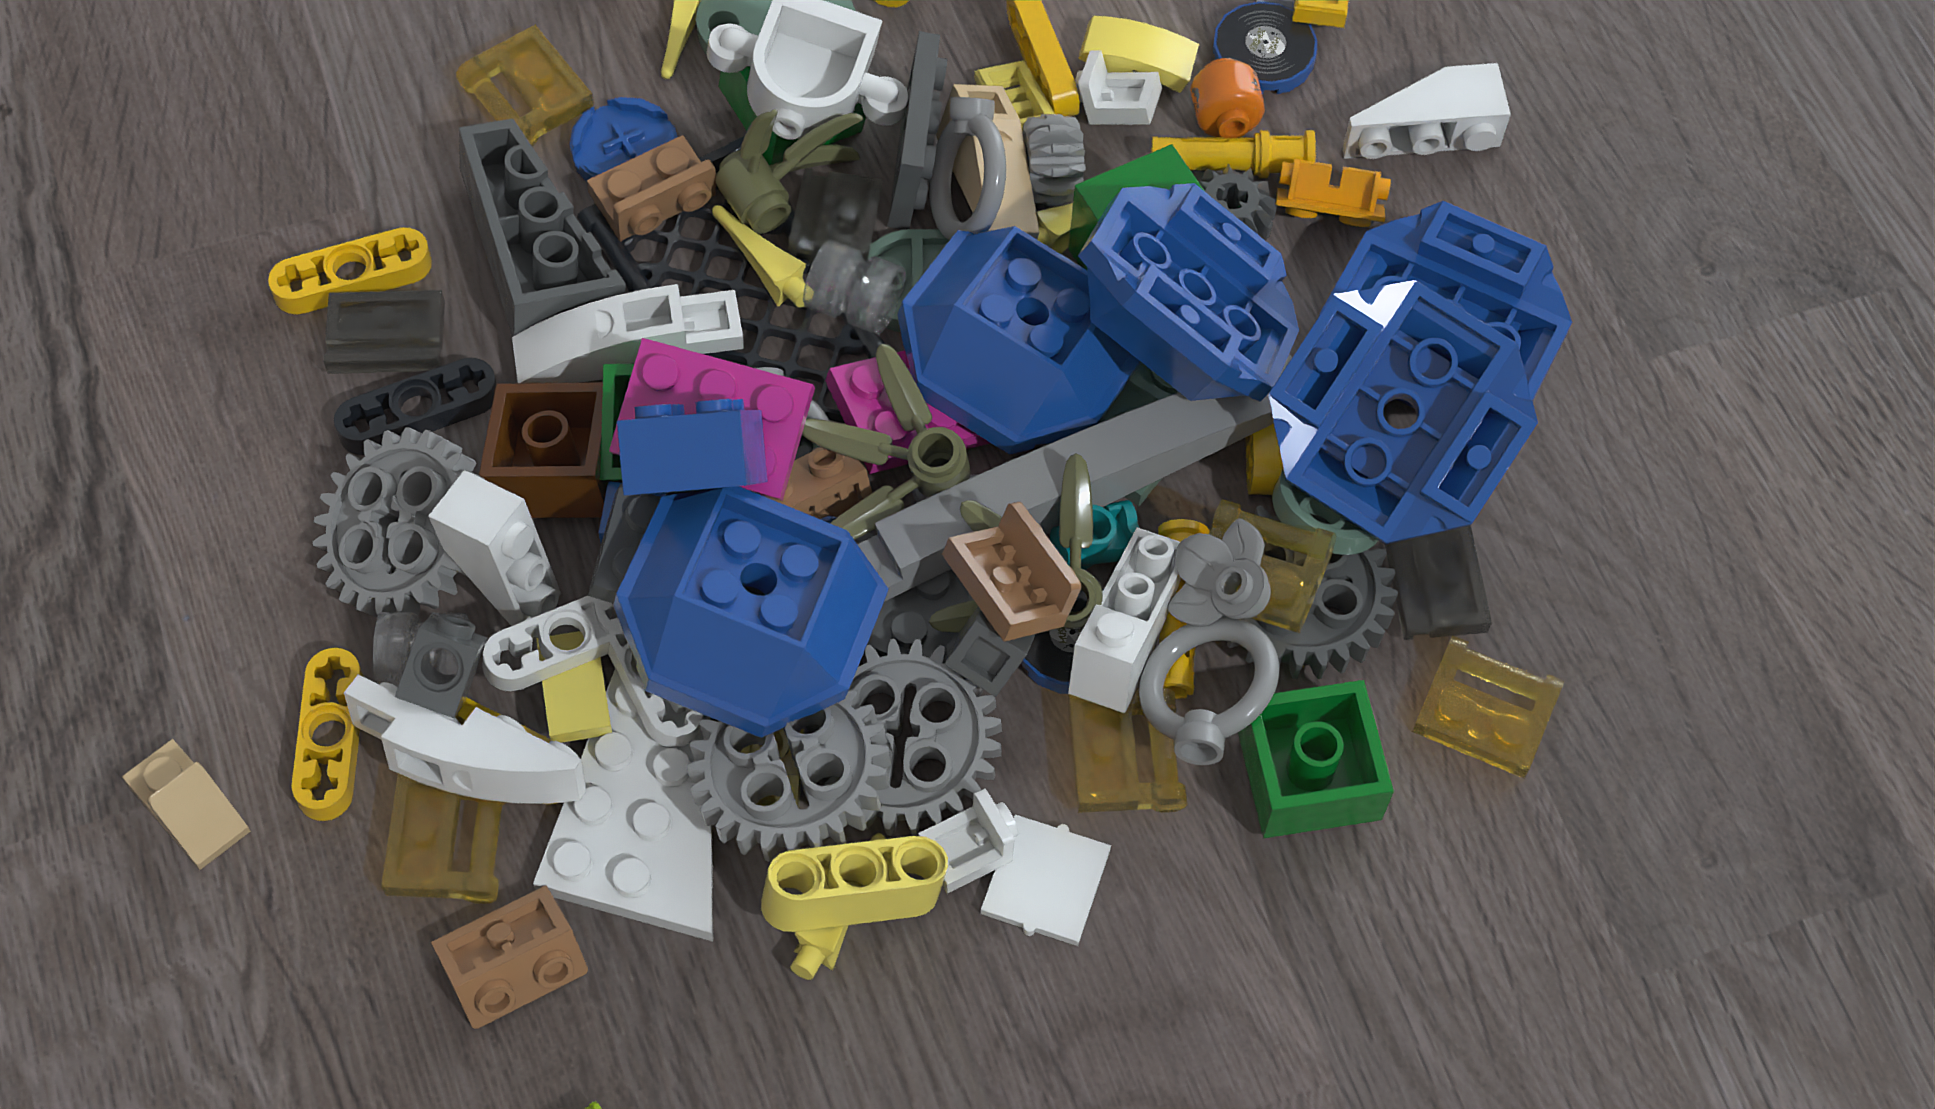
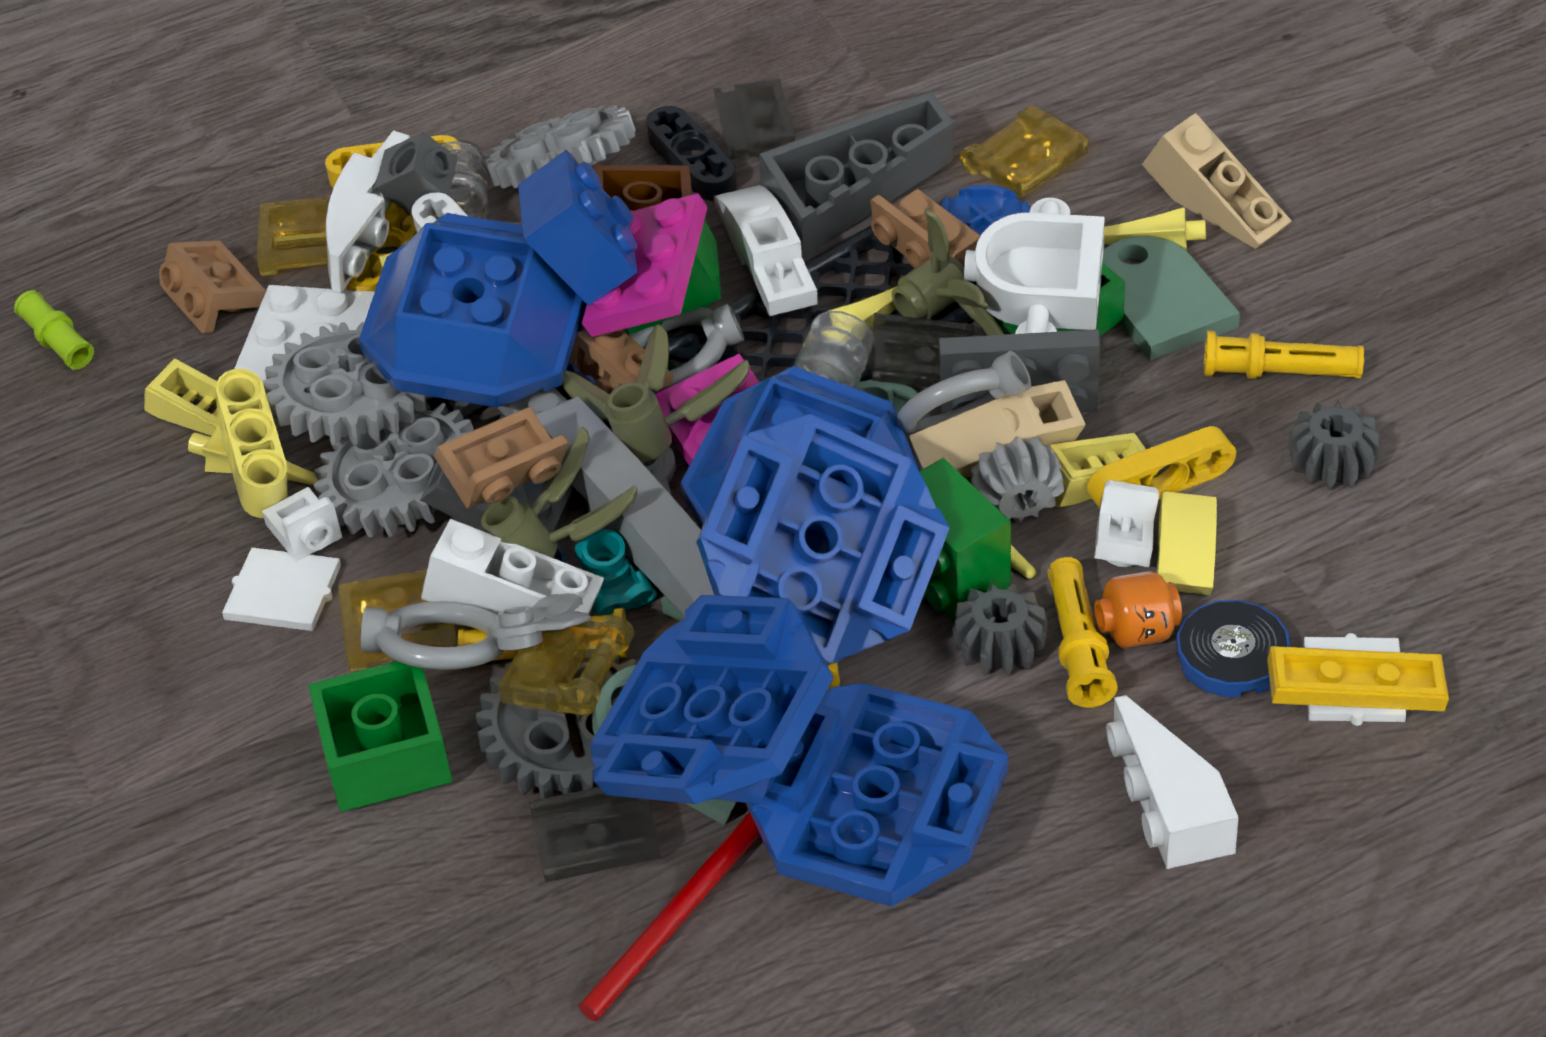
camera: 90 degrees right, 15 degrees down
(186, 803) = (332, 105): tan slope -> none
(330, 259) = (813, 79): yellow beam -> none
(496, 547) = (511, 150): white slope -> none
(704, 1003) = (163, 402): none -> light yellow slope
(1351, 200) = (1036, 708): light orange hinge -> none
(1483, 723) = (446, 880): clear yellow plate -> none
(1546, 532) = (669, 919): none -> red bar

